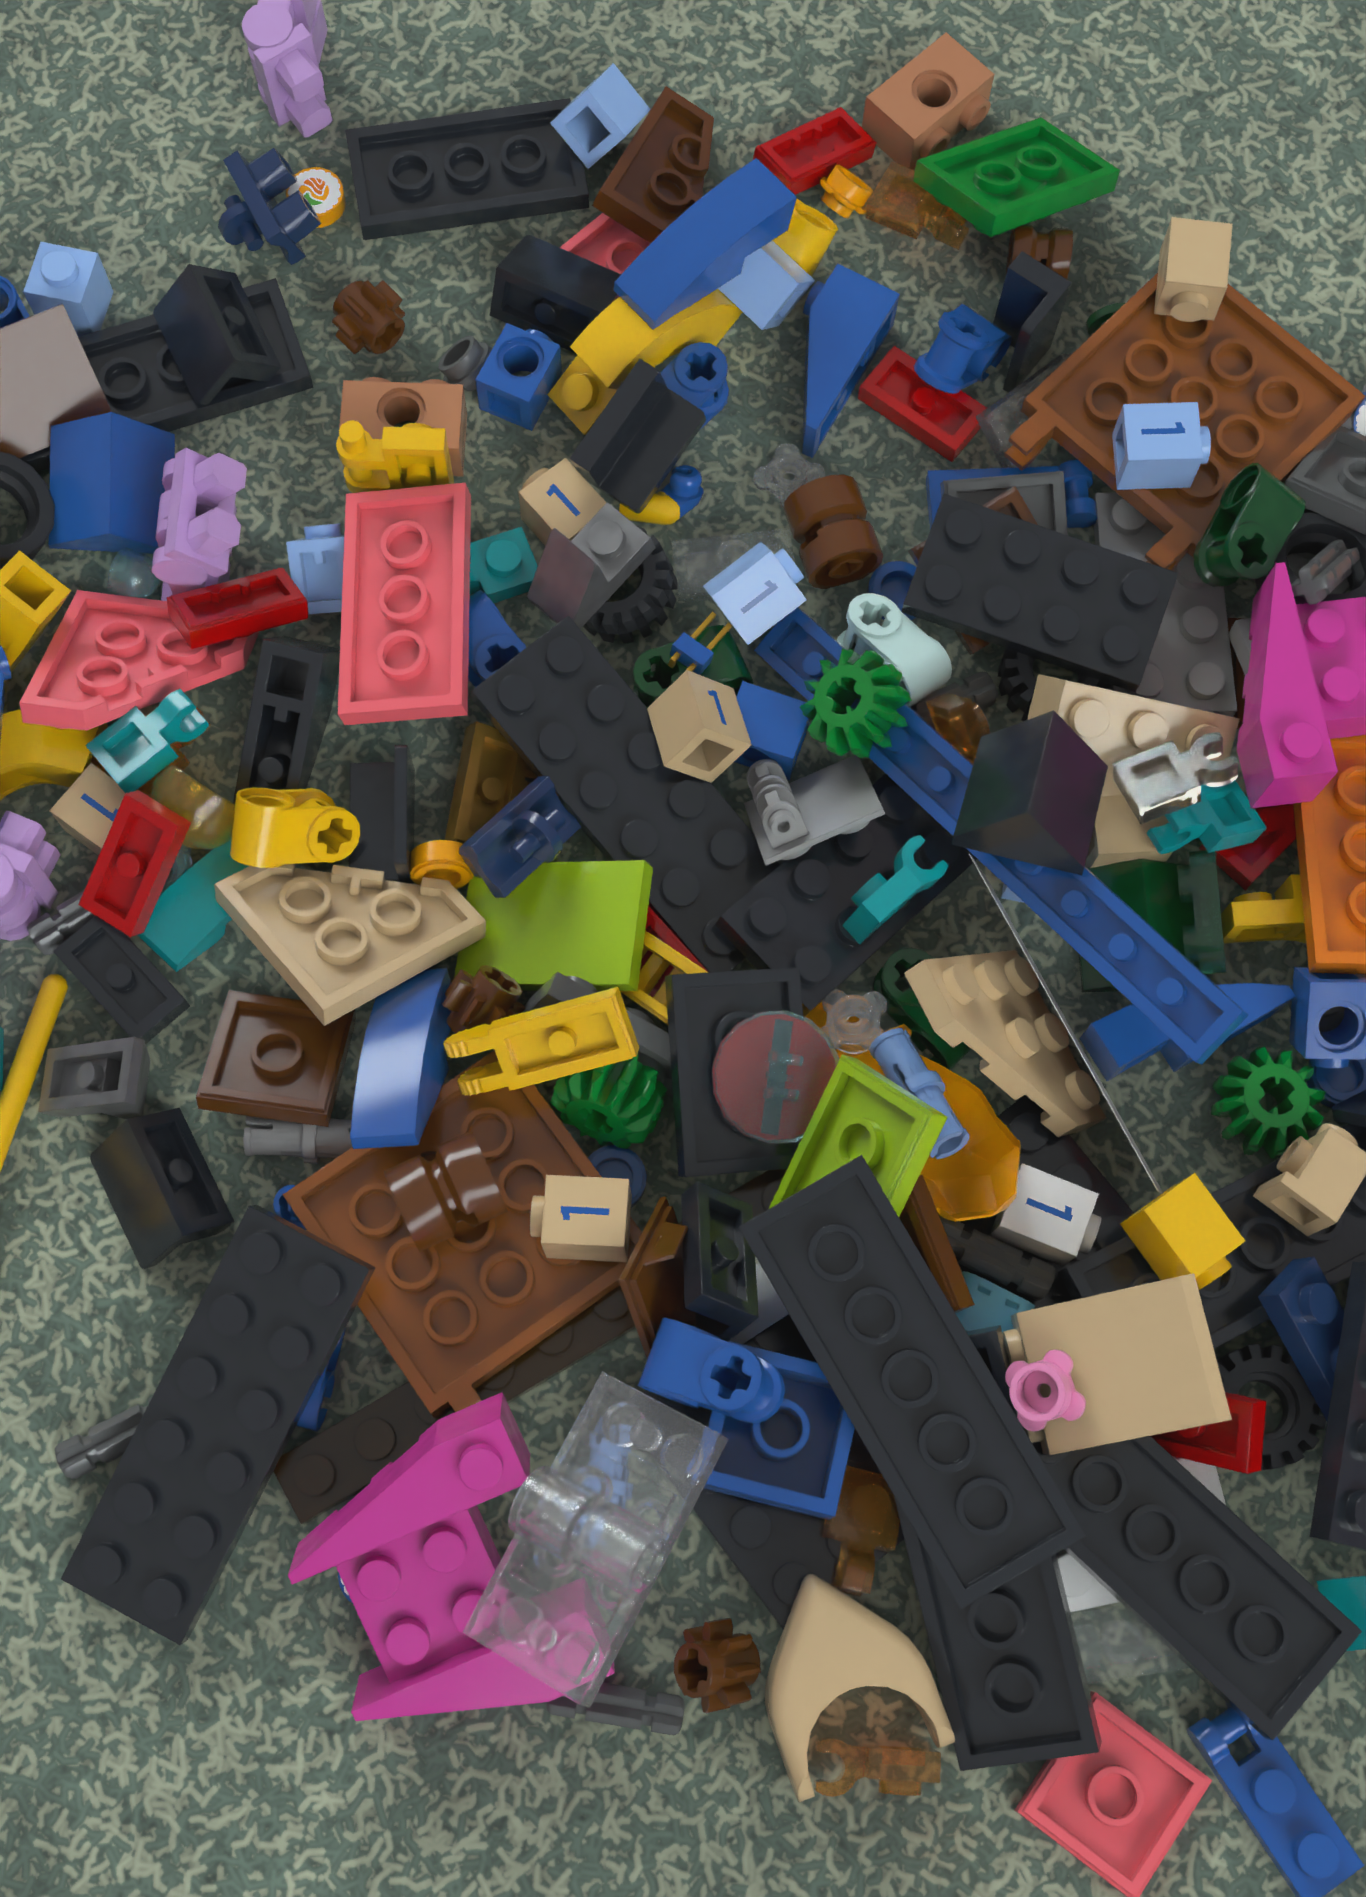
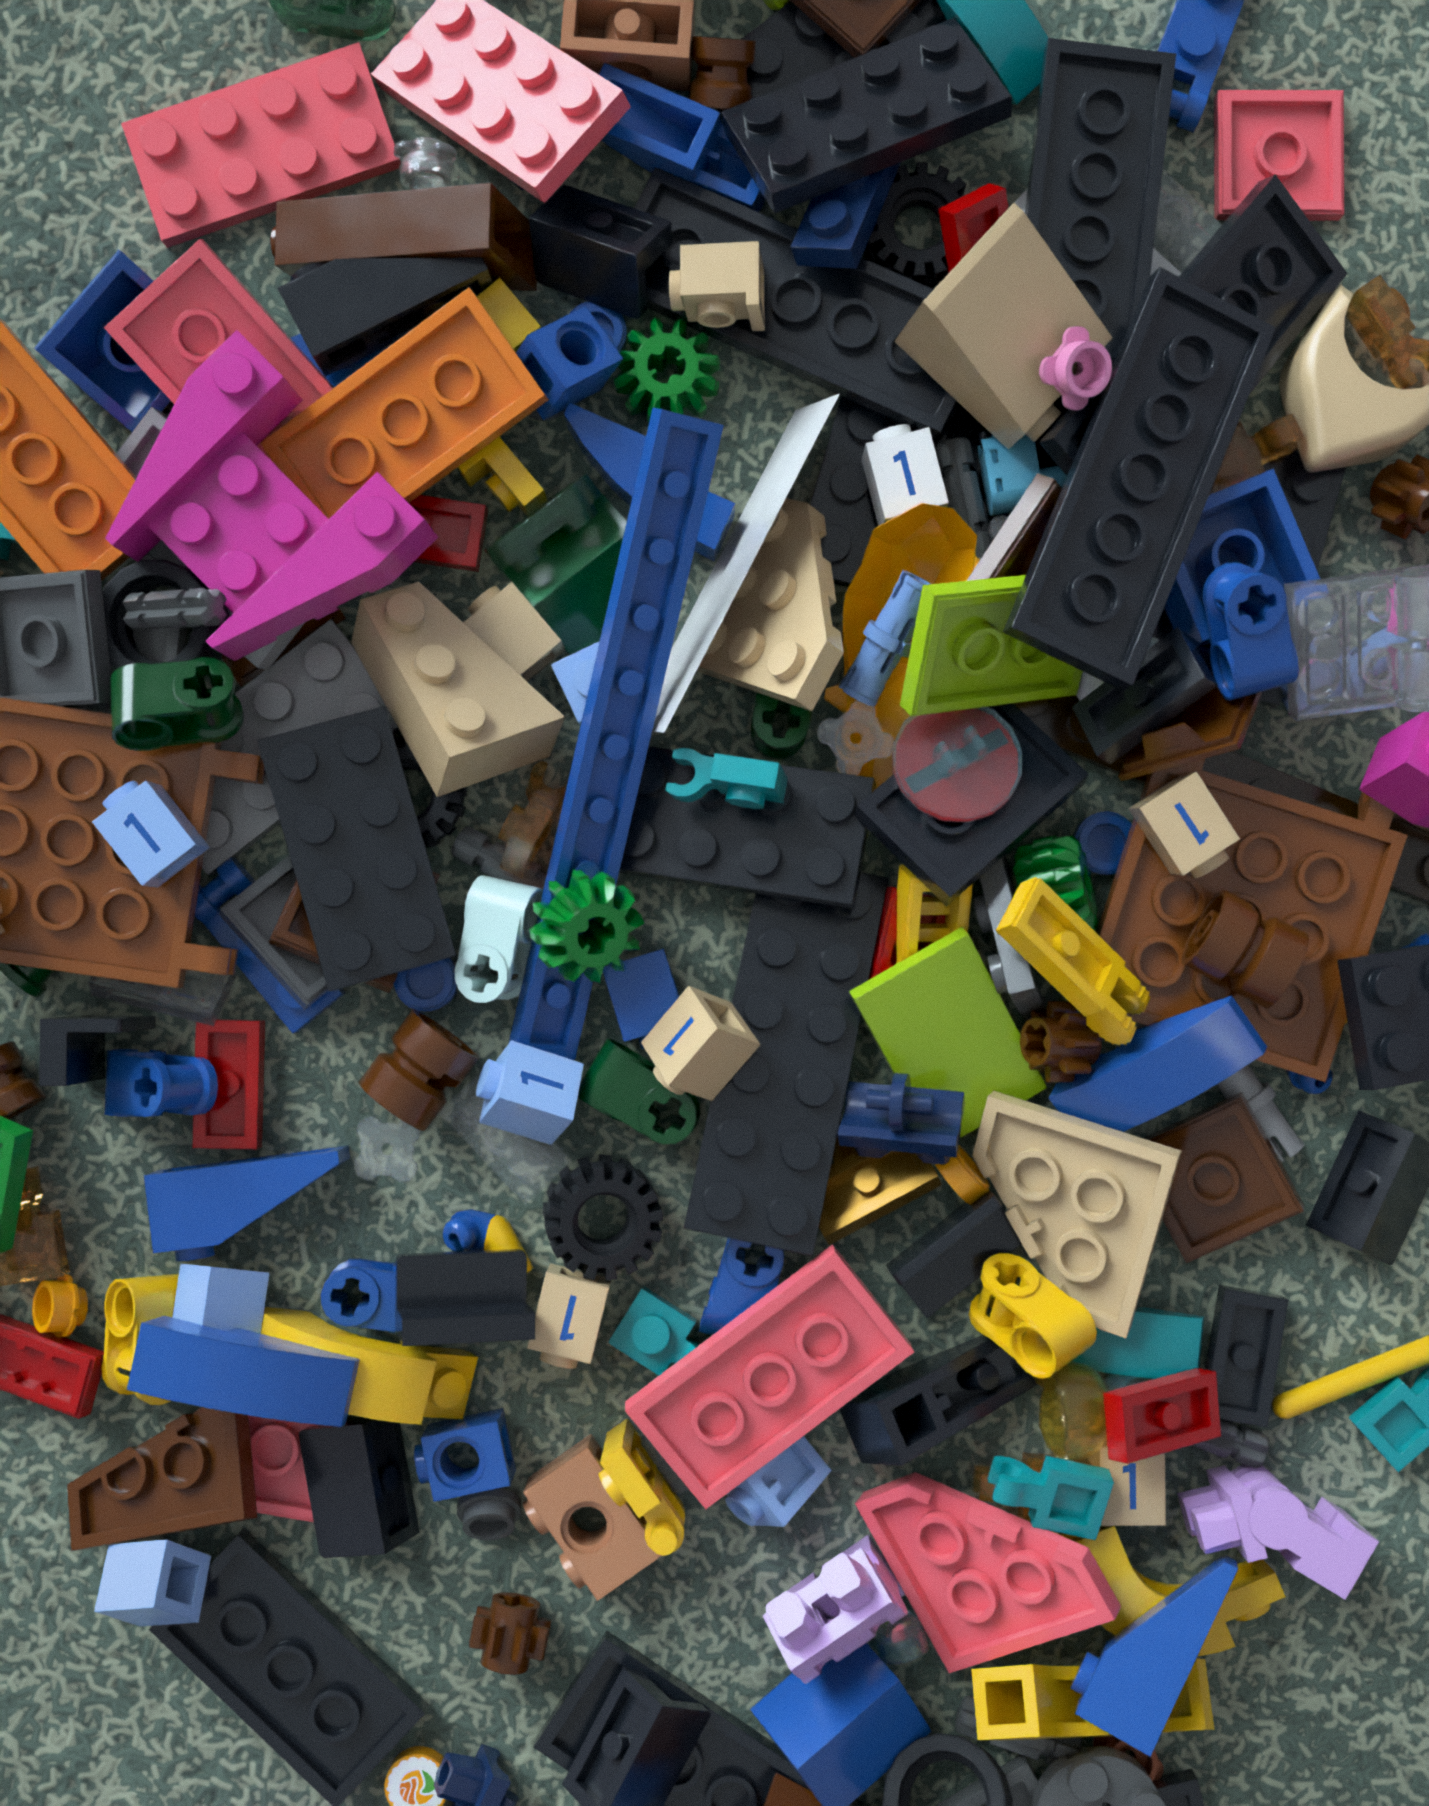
camera: 125 degrees left, 15 degrees up
(96, 1079) = (1341, 1303): flat silver slope -> none
(237, 608) = (875, 1518): red plate -> none
(585, 571) = (619, 1246): flat silver slope -> none
(693, 653) = (633, 1101): blue piece -> none
(808, 810) = (697, 905): light grey hinge -> none
(1033, 795) = (578, 712): black slope -> none
(1168, 780) = (473, 619): clear smoke plate -> none
(1184, 1233) = (852, 354): yellow brick -> none
(1219, 821) = (460, 567): teal plate -> none

